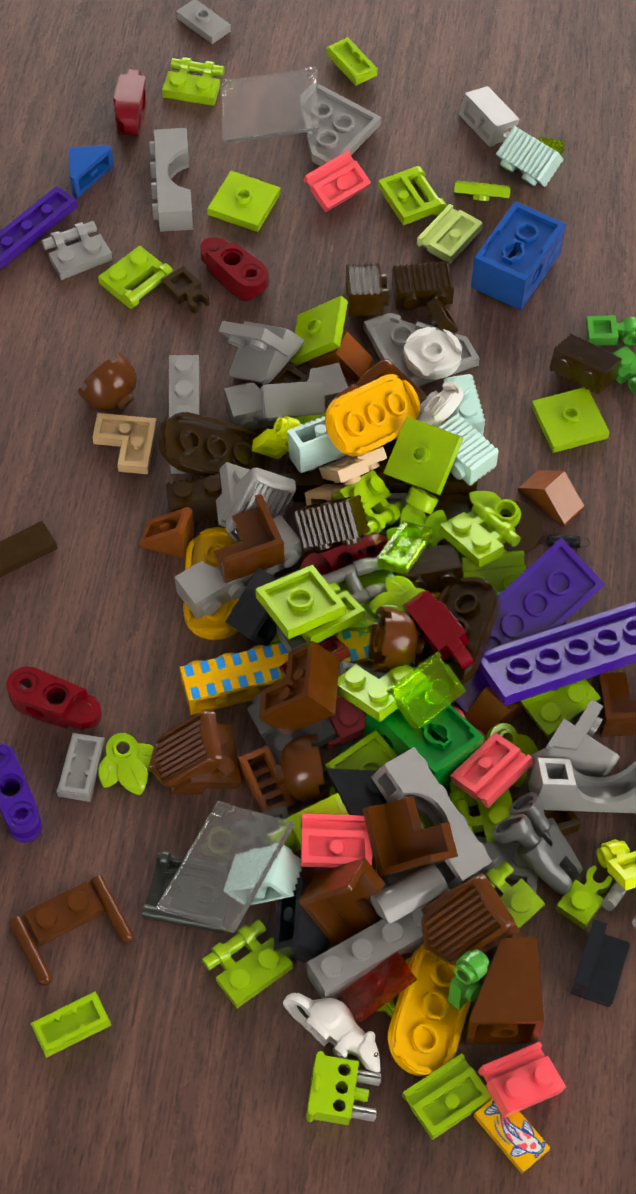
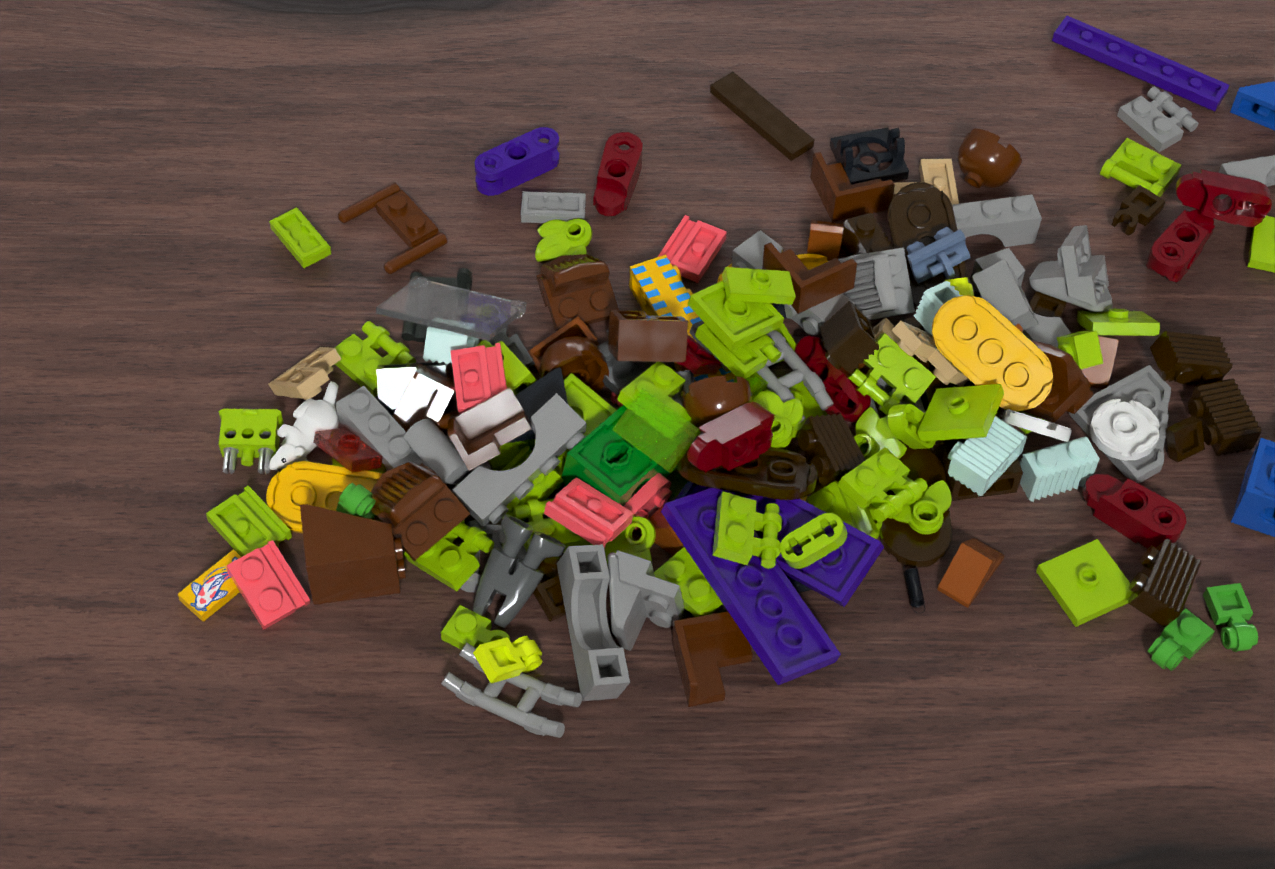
camera: 80 degrees right, 5 degrees down
(68, 498) = (843, 153): none -> black piece
(116, 514) = (848, 200): none -> reddish brown panel
(161, 648) = (693, 247): none -> coral plate
(199, 219) = (1200, 190): none -> dark red piece
(234, 425) = (938, 256): none -> sand blue hips
(272, 1033) = (307, 375): none -> tan plate
(279, 575) = (758, 285): none -> lime plate
(355, 359) = (1083, 347): none -> lime plate
(404, 547) = (844, 414): clear neon green plate -> none
(511, 367) = (1150, 514): none -> dark red piece
(532, 648) = (735, 530): none -> lime plate
(555, 588) = (813, 540): none -> lime beam
(600, 966) = (398, 648): black panel -> none

